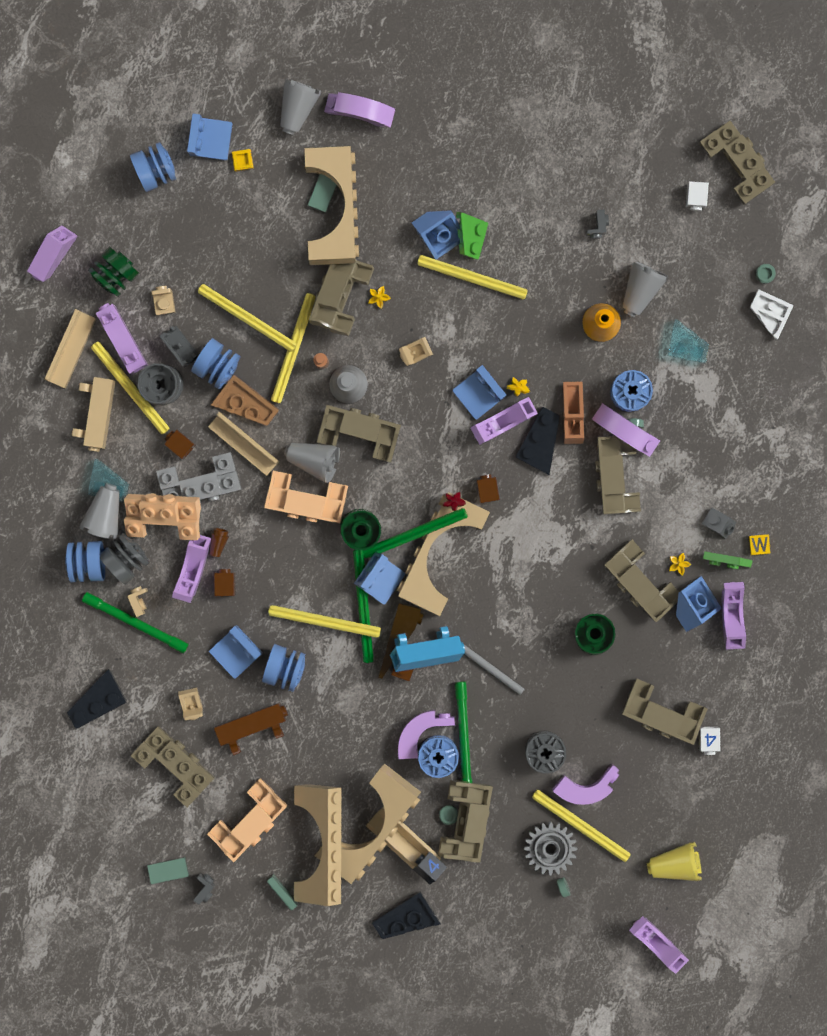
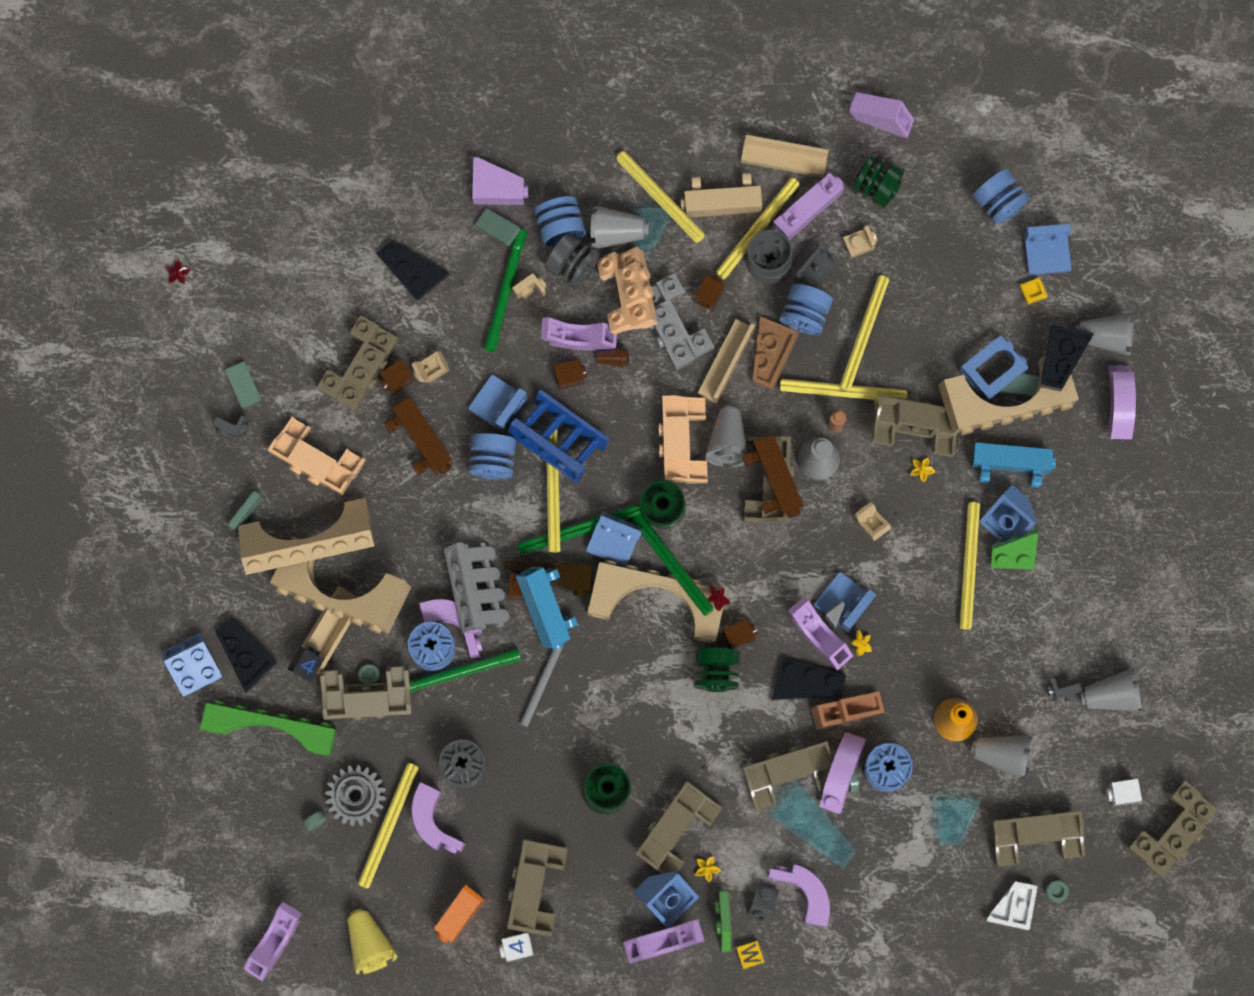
camera: 75 degrees right, 10 degrees down
(38, 609) = (496, 185): none -> lavender slope
(52, 907) = (177, 272): none -> dark red plant
(77, 617) = (497, 227): none -> sand green tile
(82, 467) = (660, 197): none -> light yellow axle
(192, 735) = (396, 377): none -> reddish brown brick
(285, 202) = (987, 391): none -> medium blue panel
(294, 615) = (547, 451): none -> blue fence
(309, 150) = (1062, 354): none -> black wing
(360, 425) = (777, 476): none -> reddish brown brick
(388, 216) = (1013, 459): none -> dark azure brick
(395, 717) = (465, 591): none -> light grey fence
(404, 966) = (191, 664): none -> bracket
(490, 404) = (834, 614): none -> light grey slope
(493, 873) = (224, 720): none -> bright green arch
(515, 517) = (716, 665): none -> dark green wheel
(611, 181) = (1114, 693): none -> light grey cone
(663, 467) = (806, 821): none -> clear light blue wing
(671, 782) = (458, 914): none -> orange slope
(712, 277) = (1041, 829): none -> dark tan bracket
(726, 477) = (814, 891): none -> lavender arch

